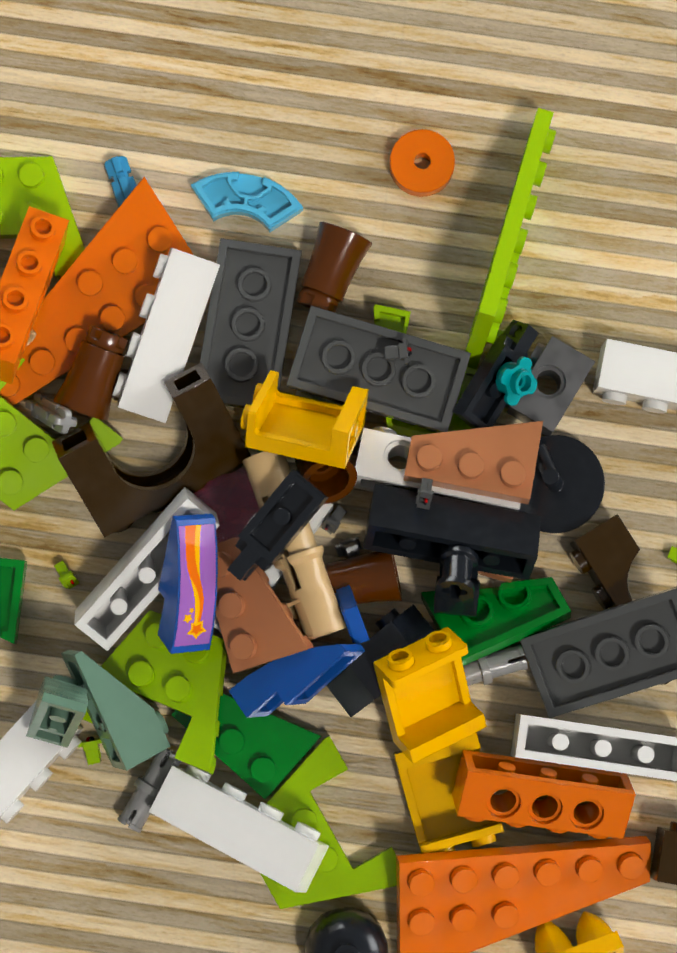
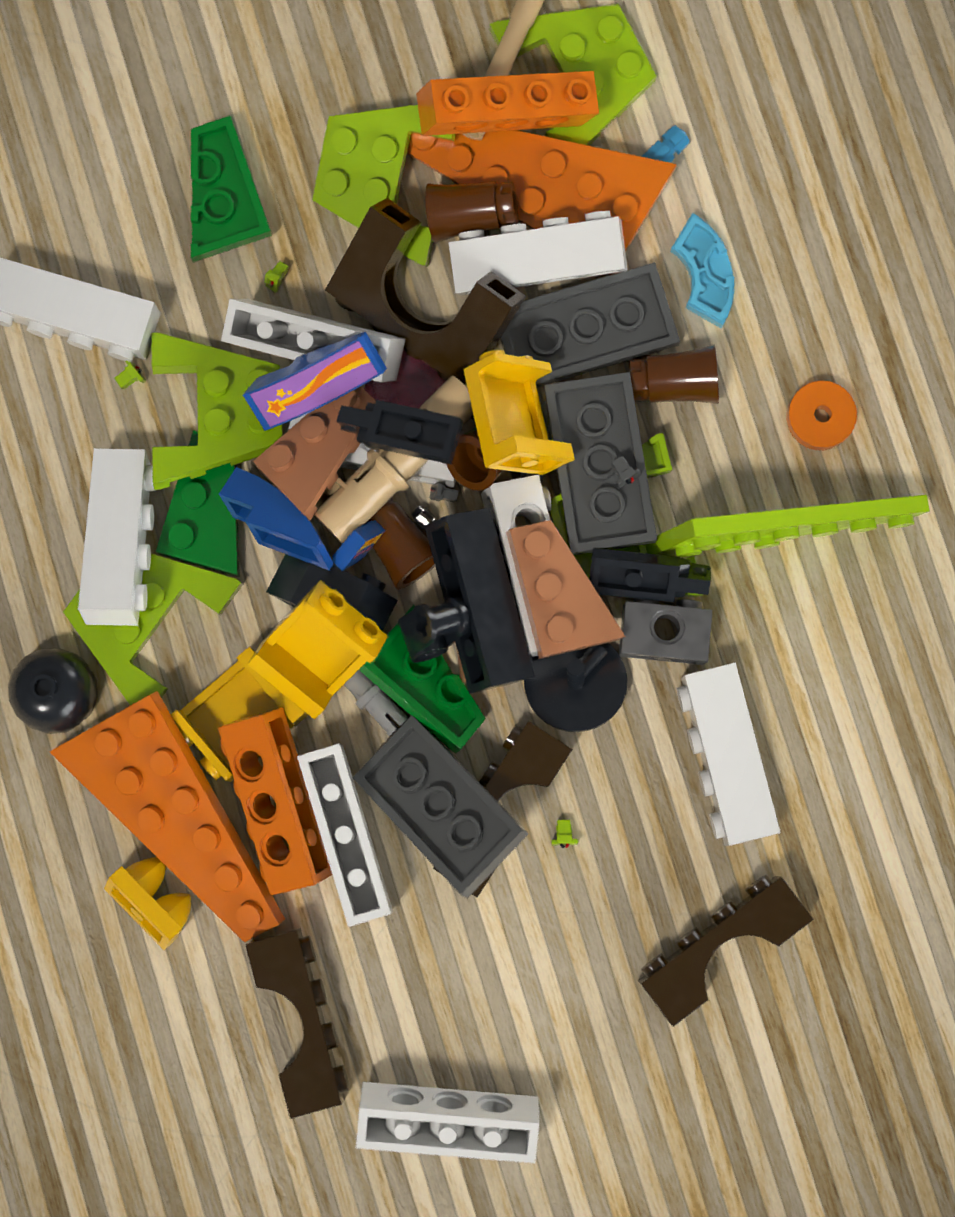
camera: 70 degrees right, 0 degrees up
(51, 413) = (415, 187): light grey axle -> none
(58, 710) = (144, 316): sand green slope -> none
(123, 721) = (165, 387): sand green slope -> none
(147, 788) = (116, 439): light grey pin -> none
(424, 494) = (499, 555): dark grey piece -> none
(516, 380) = (654, 584): teal plate -> none

